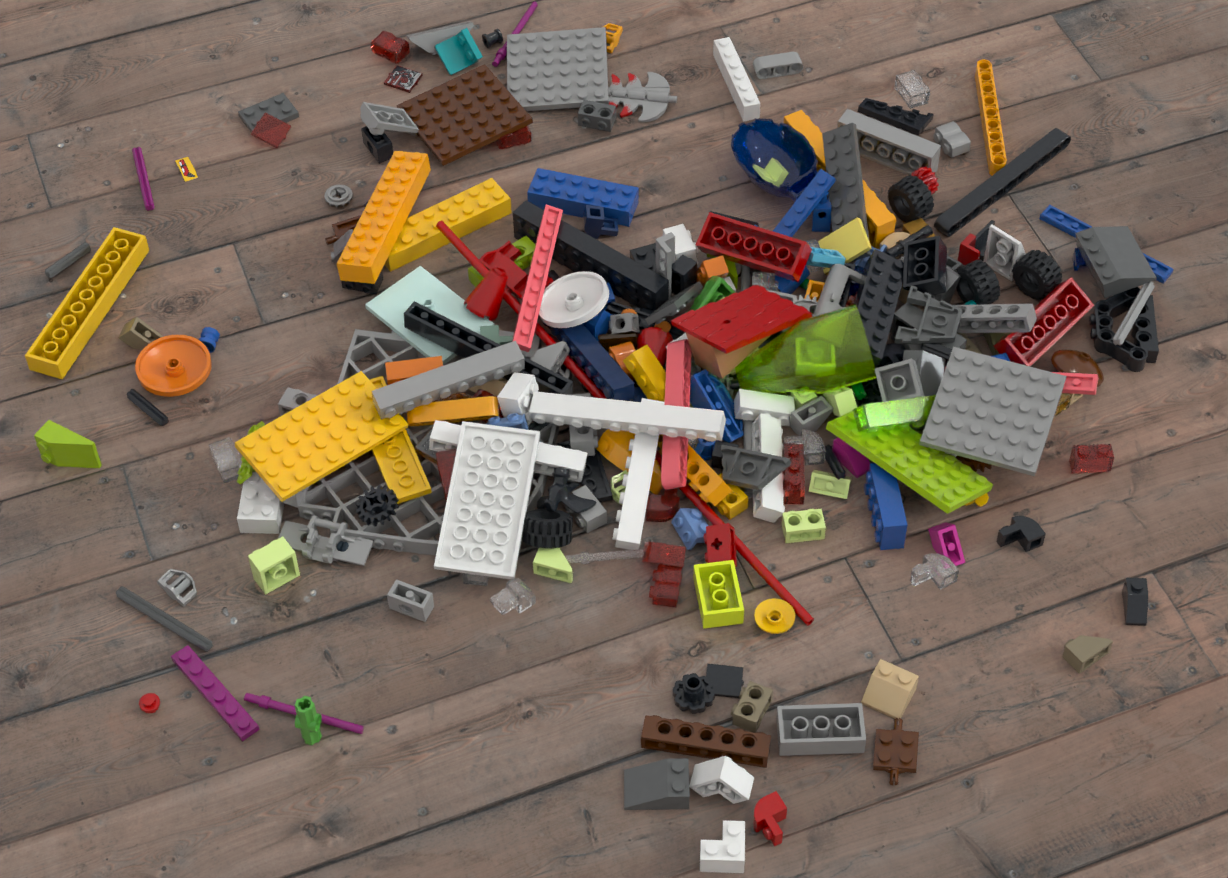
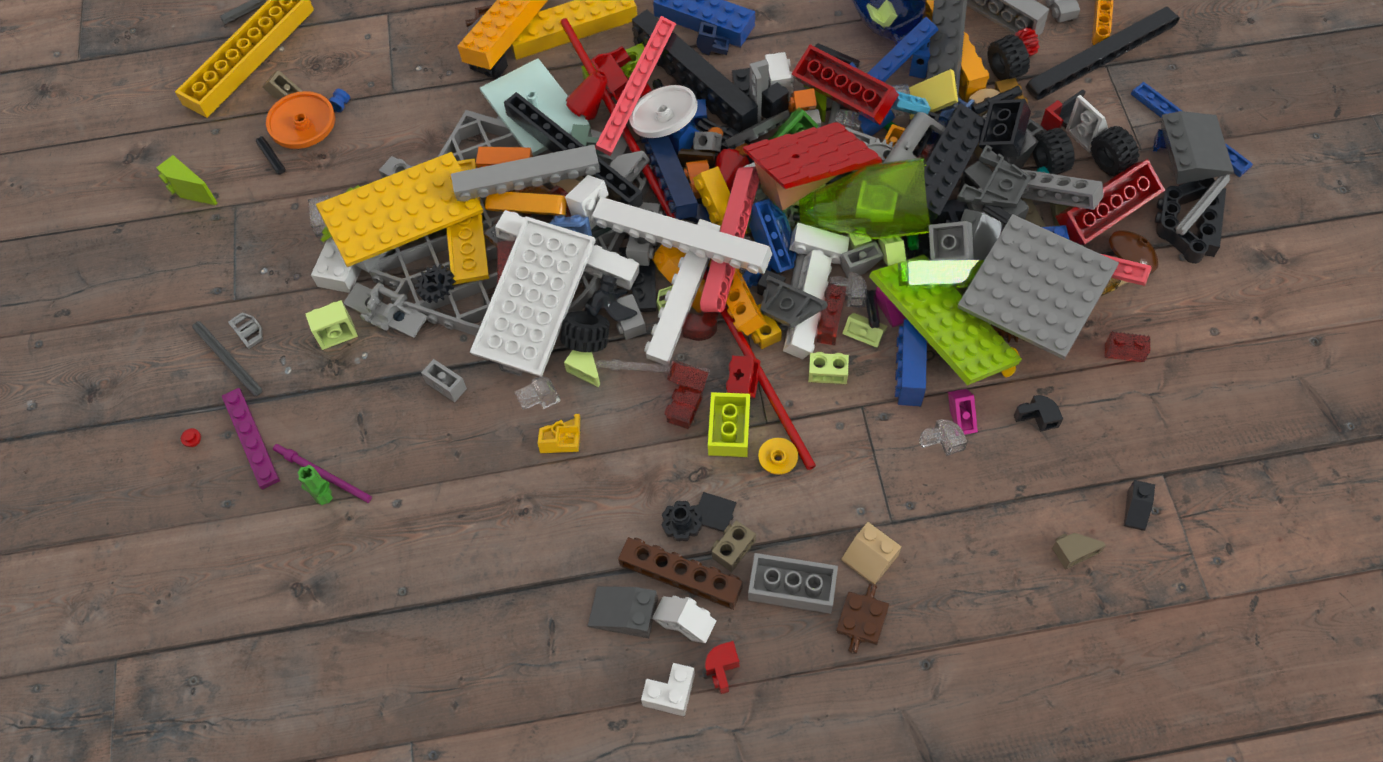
camera: 15 degrees right, 10 degrees up
(546, 636) = (560, 436): none -> yellow slope
(690, 526) = (720, 349): medium blue bracket -> none

